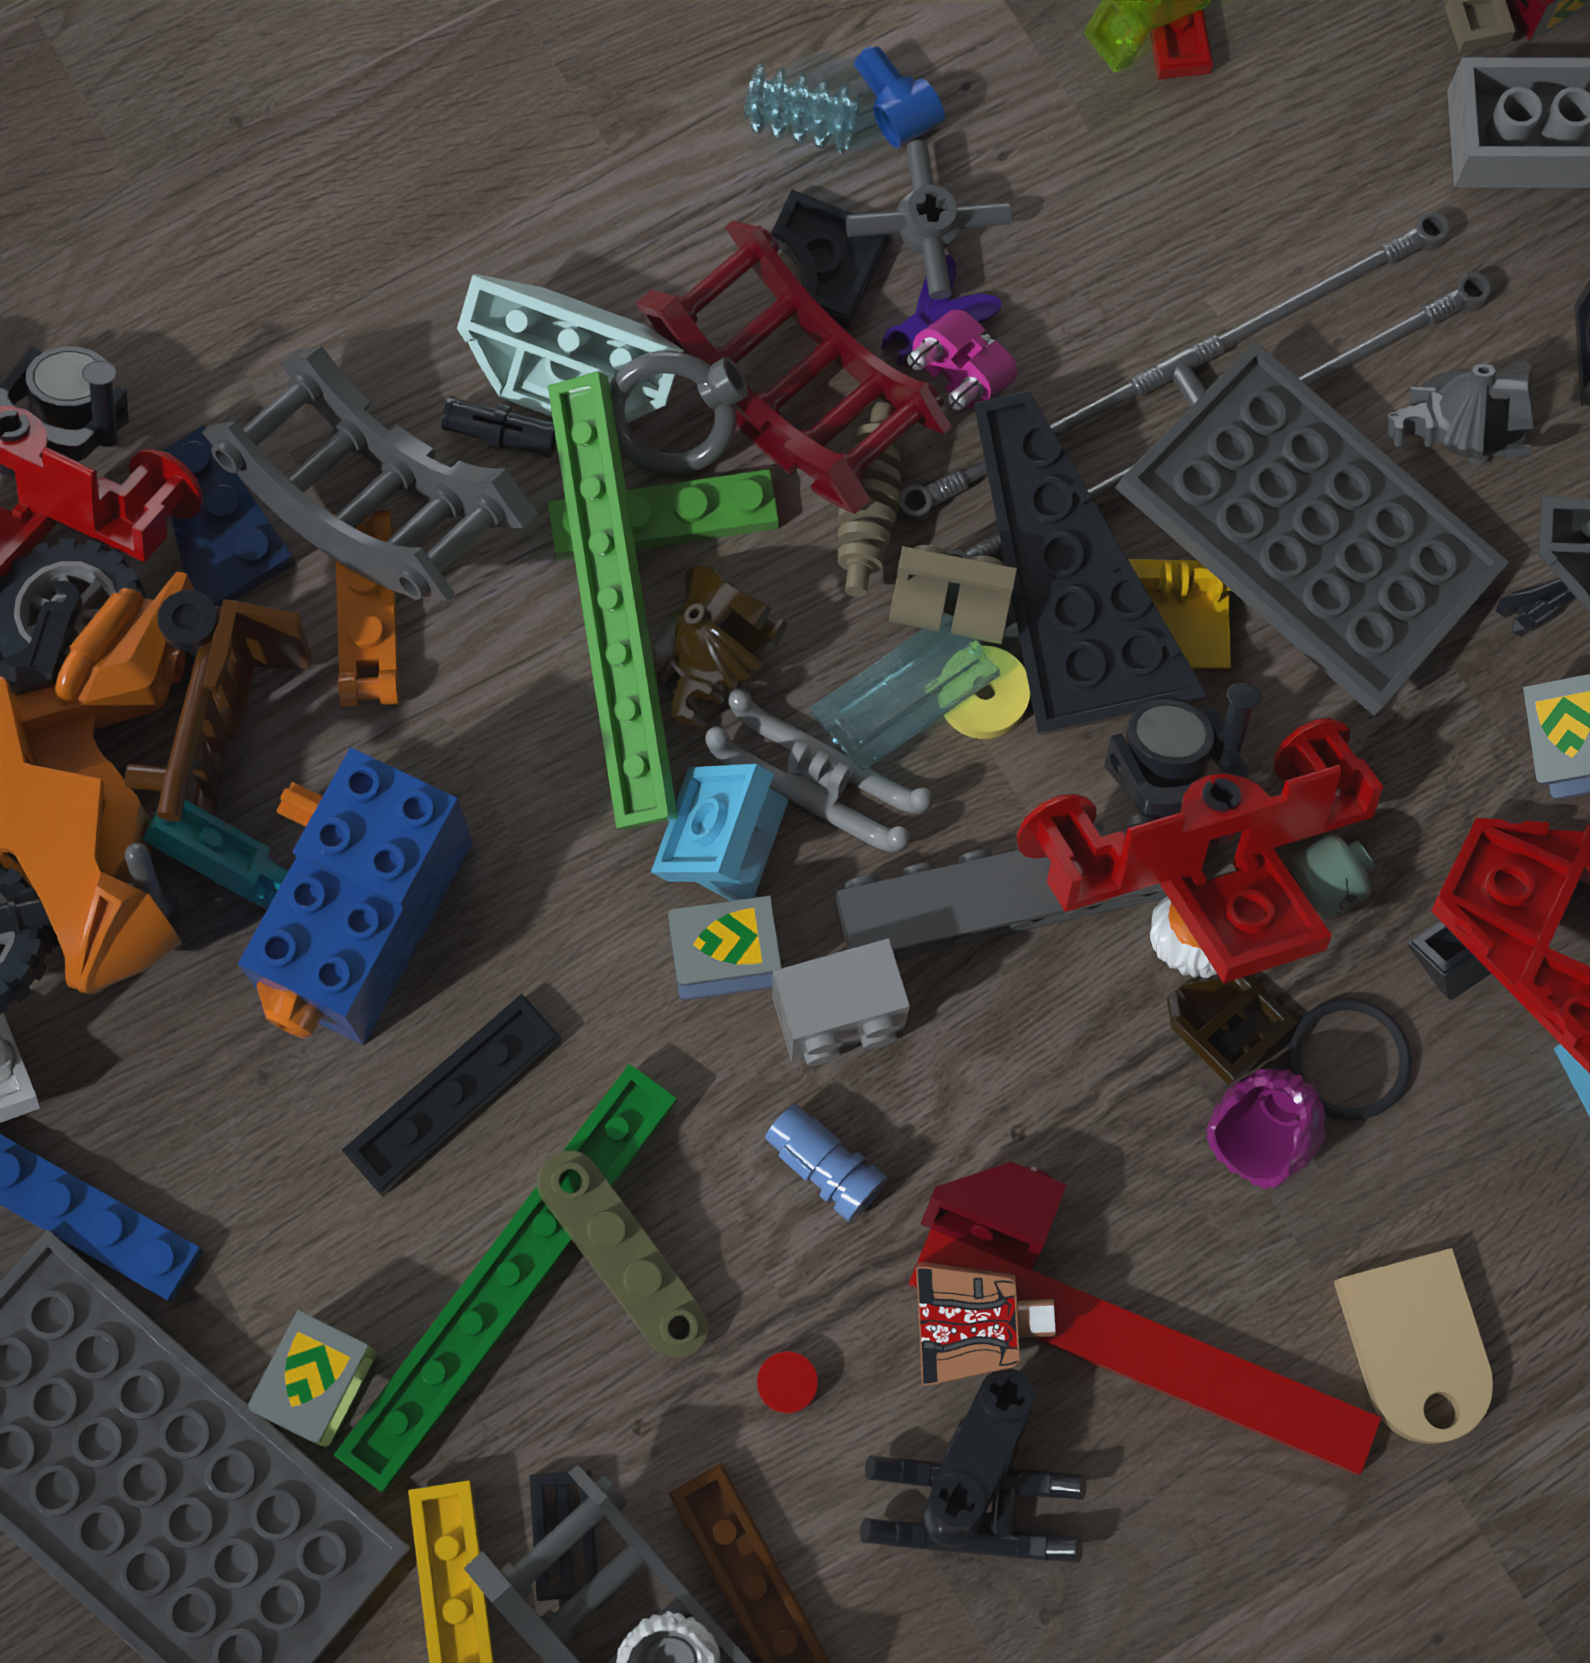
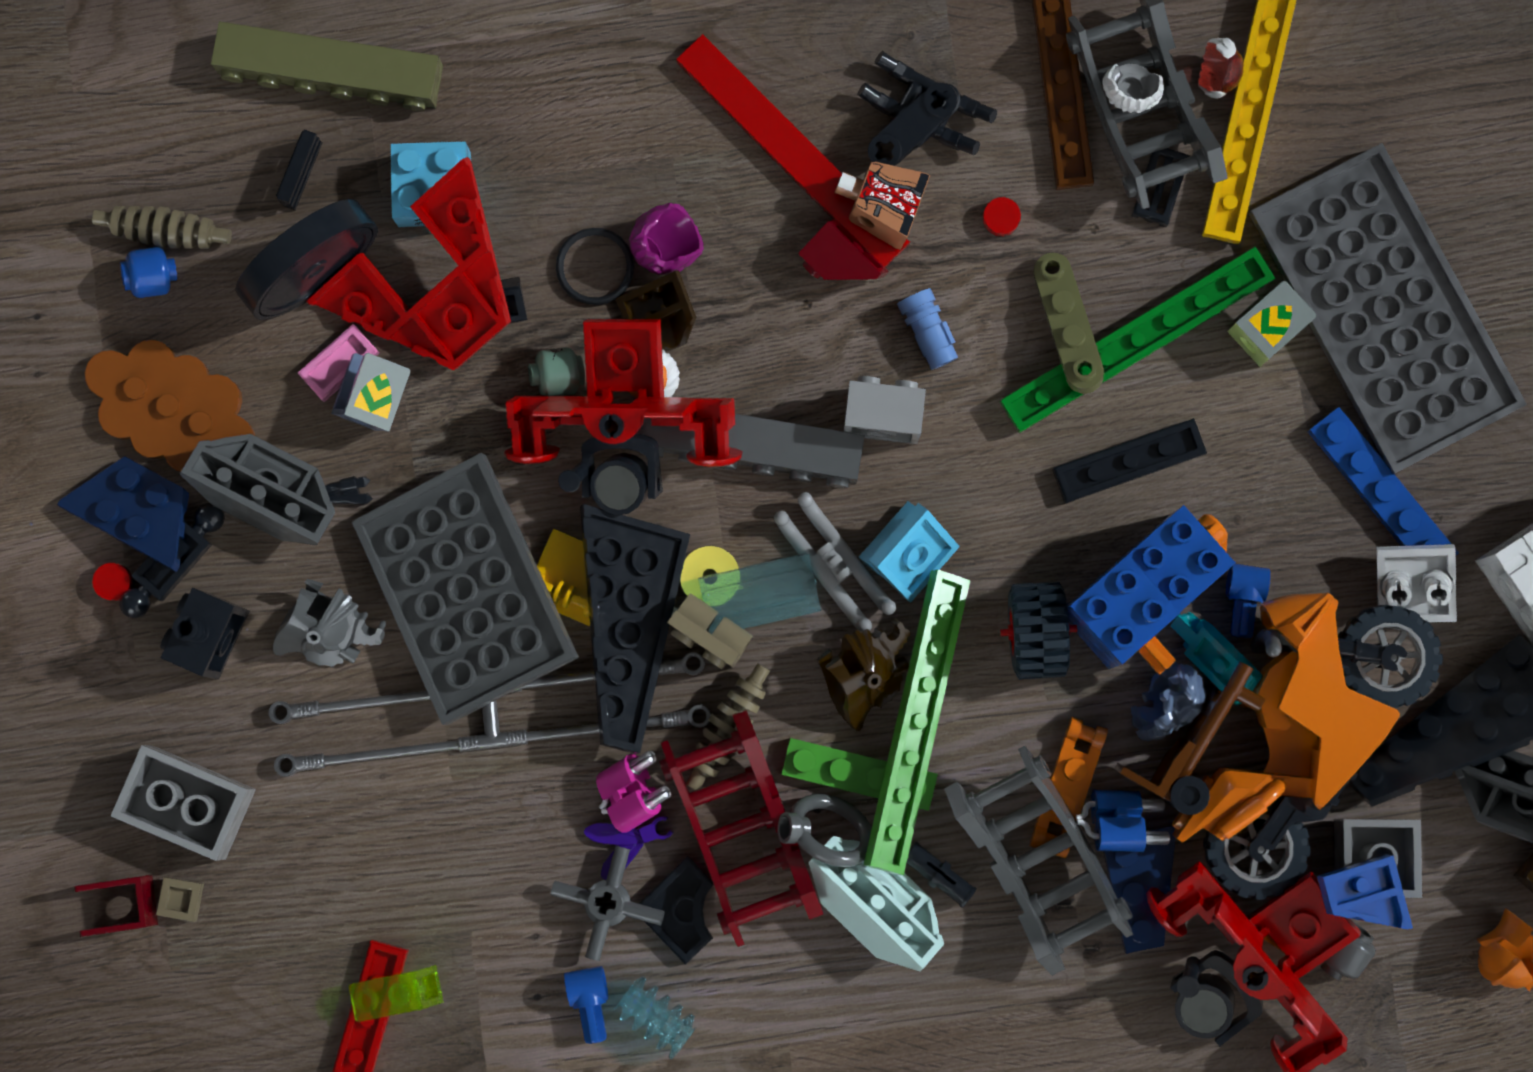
camera: 150 degrees left, 10 degrees up
(210, 973) = (1247, 588): none -> blue axle
(256, 762) = (1176, 701): none -> sand blue hair
(277, 574) = (1120, 821): none -> blue piece
(493, 779) = (1038, 630): none -> black wheel
(724, 947) = (937, 476): piece -> none
(1418, 1341) = (634, 93): tan tile -> none

